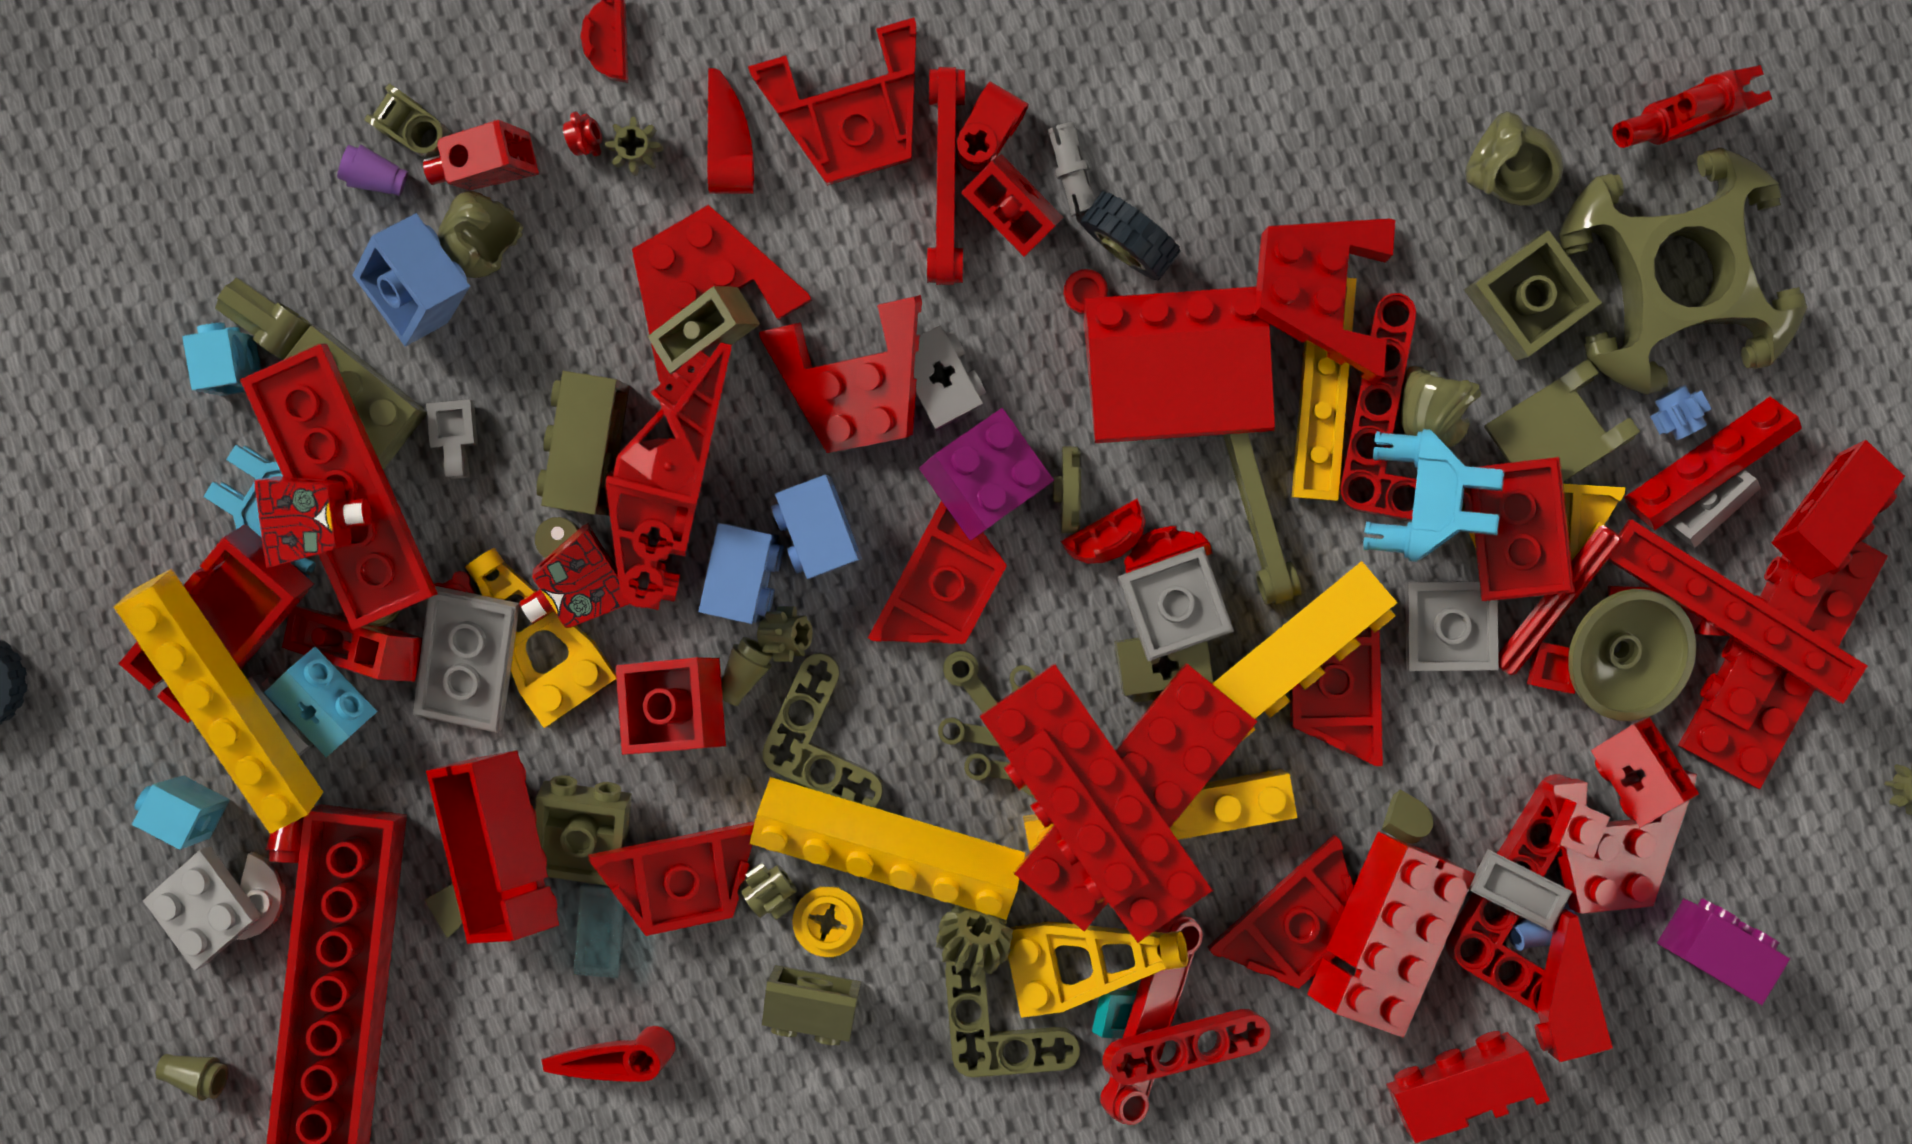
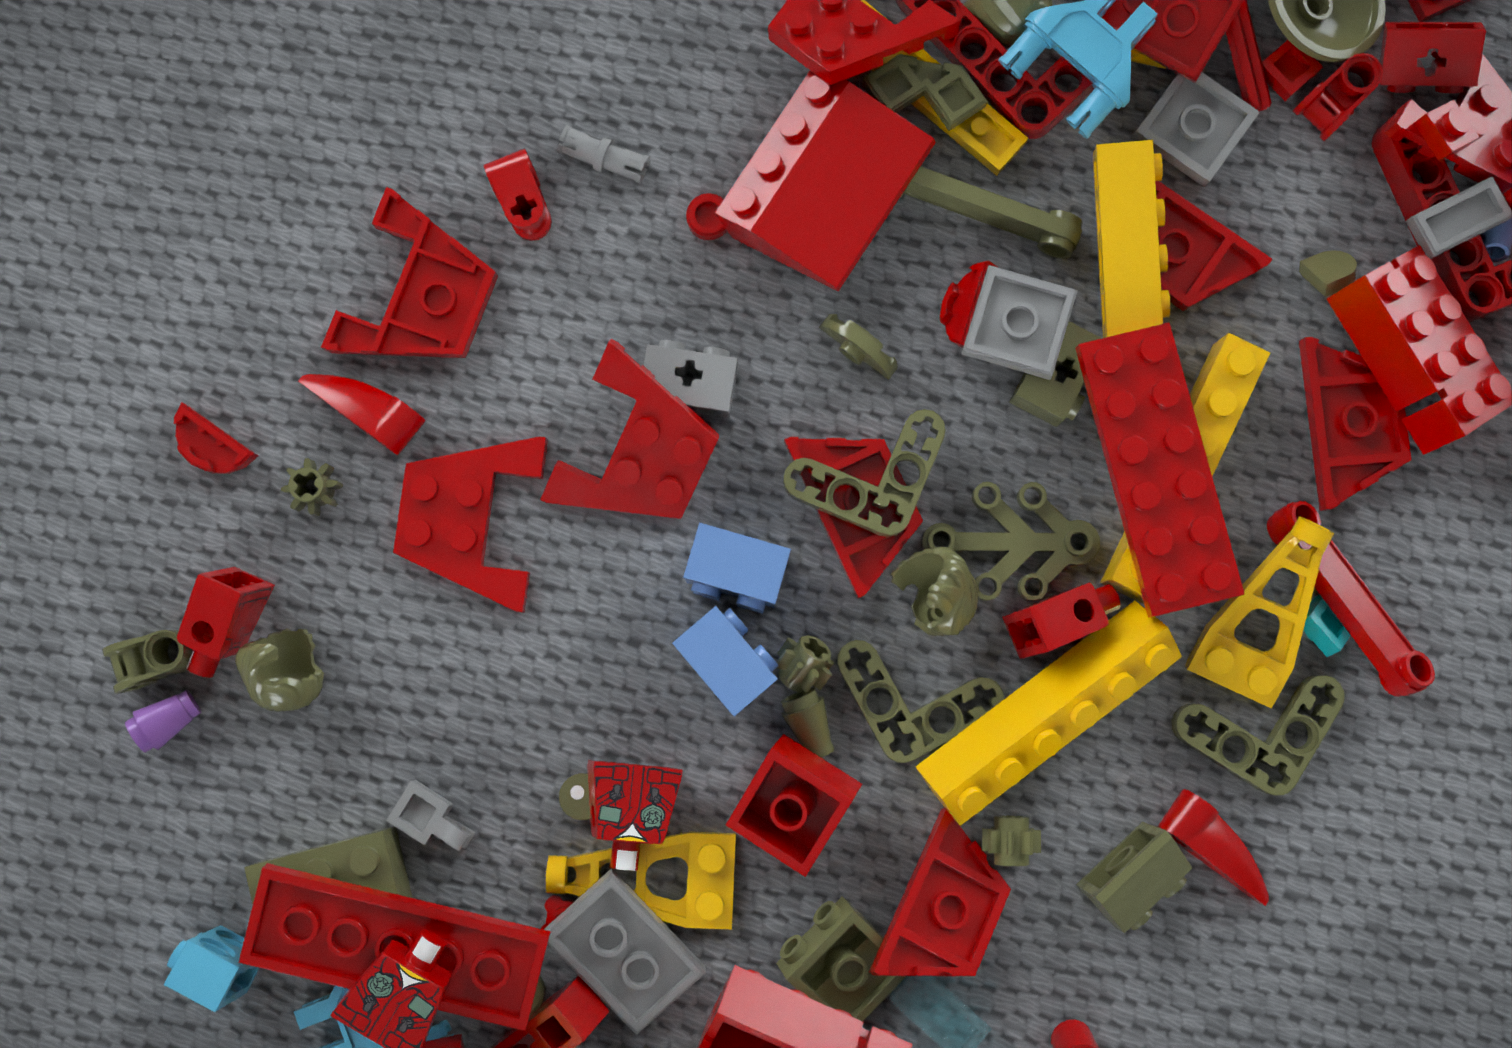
camera: 50 degrees left, 5 degrees down
(271, 323) = (217, 903): olive piece -> none
(411, 279) = (272, 752): medium blue brick -> none
(582, 135) = (270, 522): red plate -> none
(582, 442) = (518, 710): olive brick -> none
(661, 479) = (601, 658): red connector -> none
(712, 318) = (502, 540): olive slope -> none
(809, 930) = (1093, 813): yellow gear -> none
(884, 1046) = (1211, 840): none -> red piece
(922, 702) = (945, 590): none -> olive hair
(946, 91) = (466, 205): red piece -> none
(954, 798) = (1061, 619): none -> red torso
(967, 598) = (888, 490): none -> olive beam
(973, 940) = (1180, 697): olive gear -> none
(986, 473) = (797, 398): magenta brick -> none
(1012, 204) = (595, 217): red brick -> none
(1094, 804) = (1144, 503): red plate -> none
(1108, 536) = (920, 342): red plate -> none
(1130, 235) = (692, 140): black wheel -> none
(1187, 1051) = (1404, 590): red beam -> none
(1329, 401) = (944, 86): none -> olive tile
(1552, 723) = (1337, 98): none -> red piece

